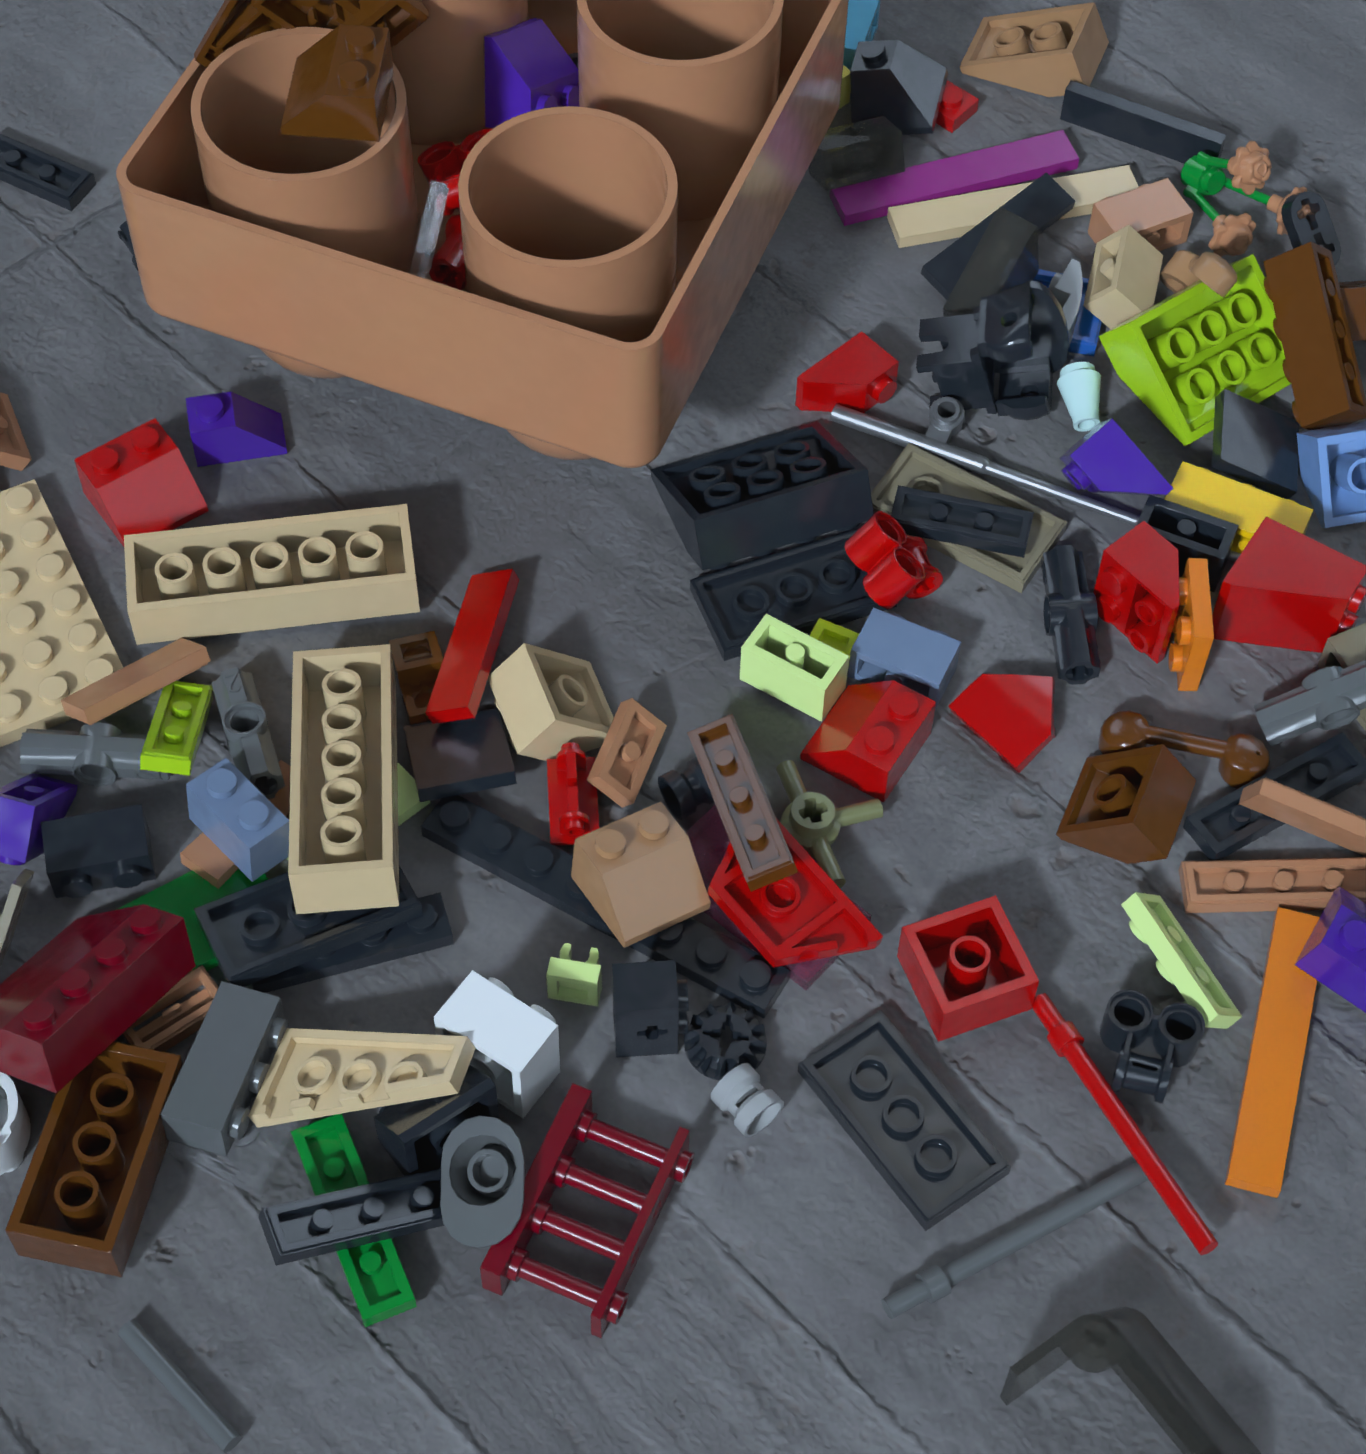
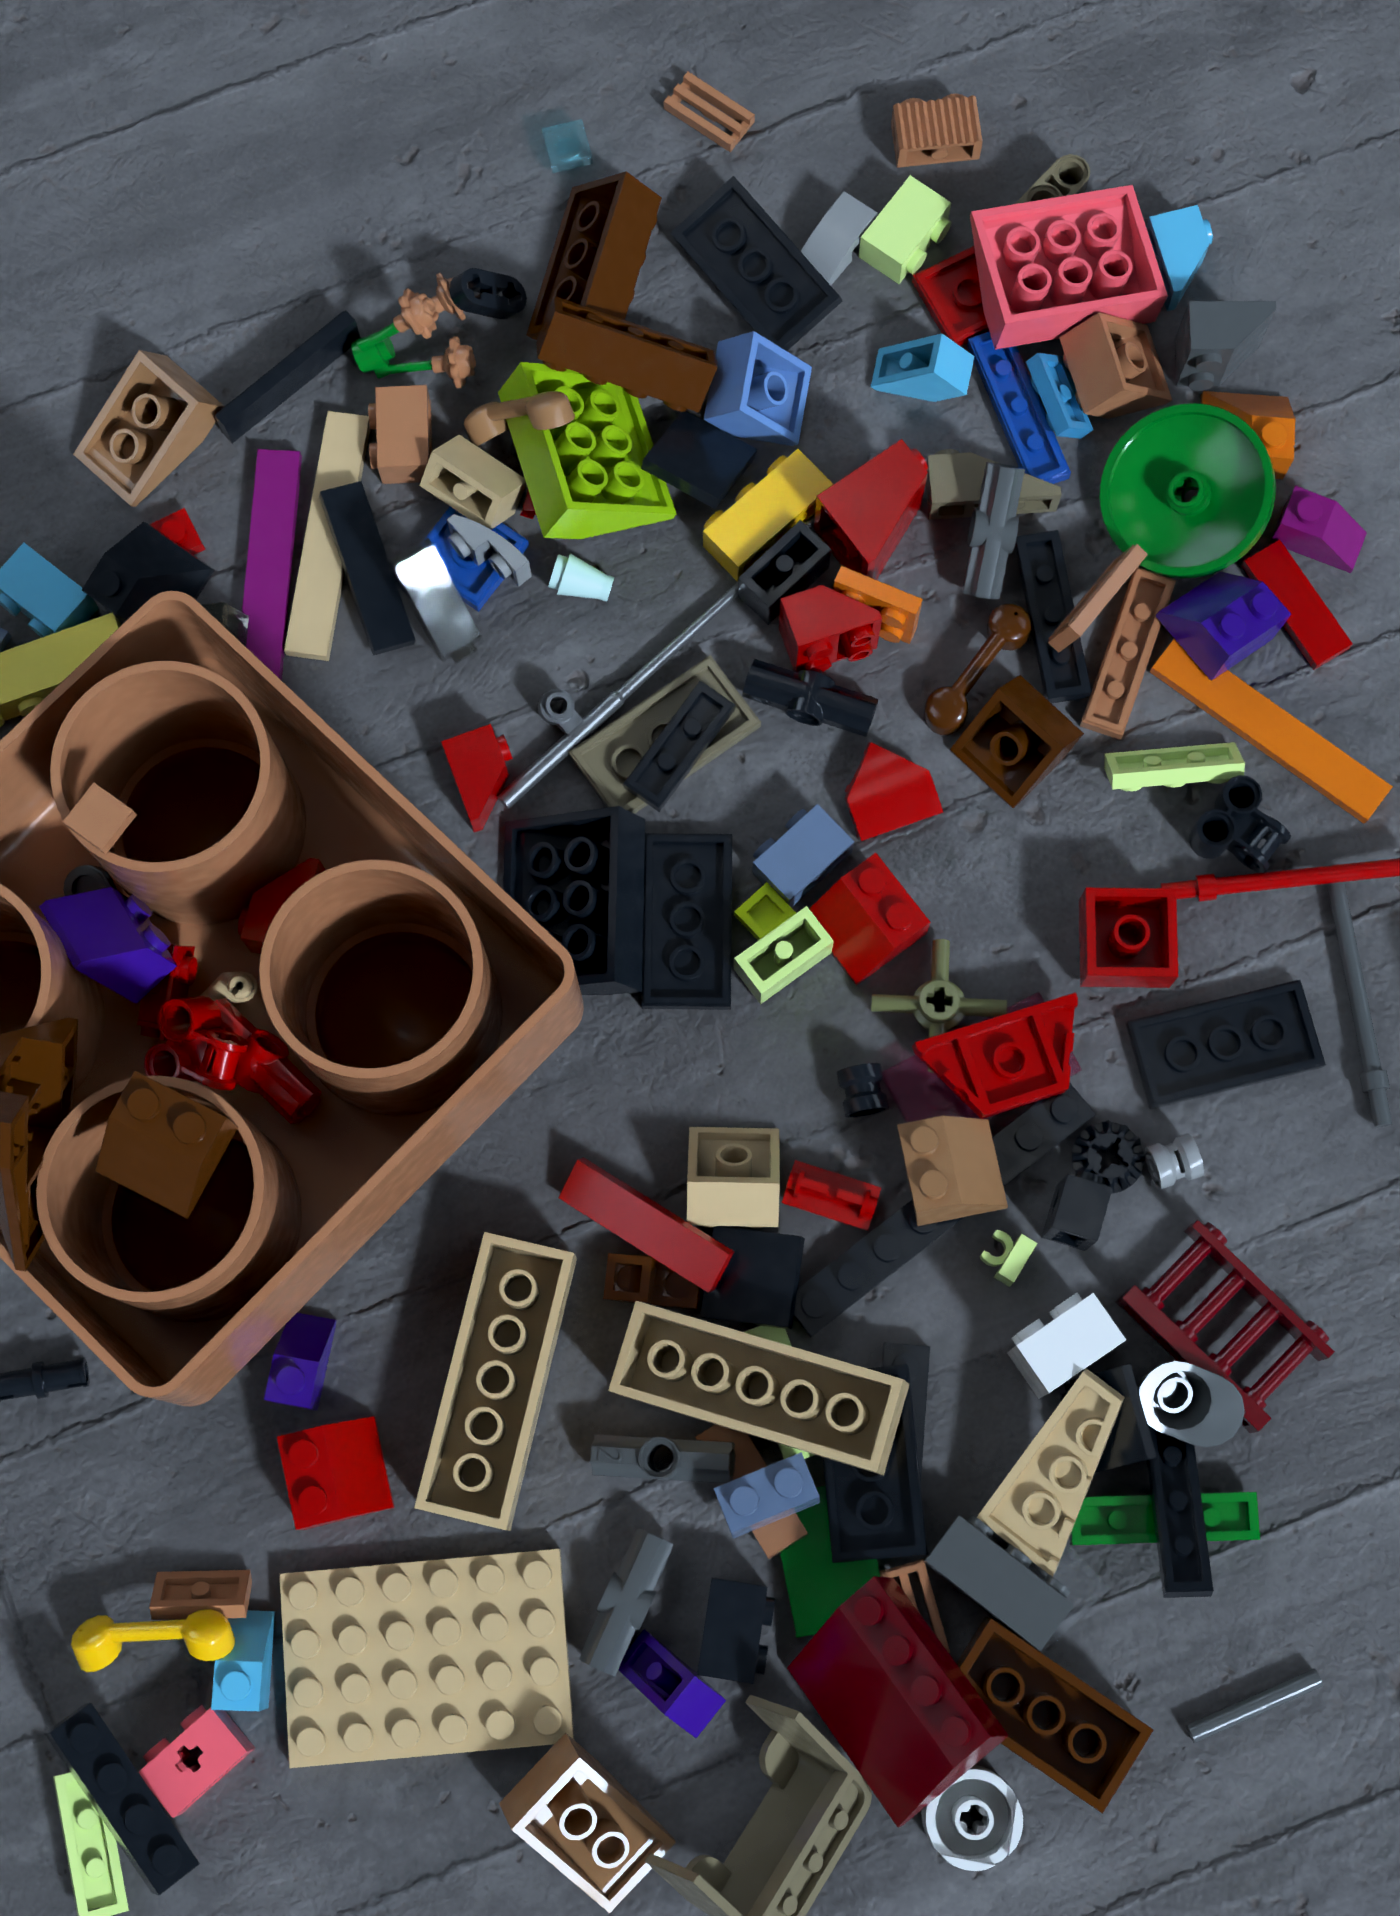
camera: 65 degrees left, 20 degrees up
(135, 681) = (565, 1544): nougat tile -> none
(177, 728) = (639, 1521): lime tile -> none
(428, 230) = (285, 1119): clear tile -> none
(626, 753) = (806, 1131): nougat plate -> none
(742, 803) = (920, 1056): tile -> none
(893, 561) = (709, 824): red piece -> none
(1011, 334) = (520, 630): black piece -> none
(1112, 464) = (687, 595): dark purple slope -> none

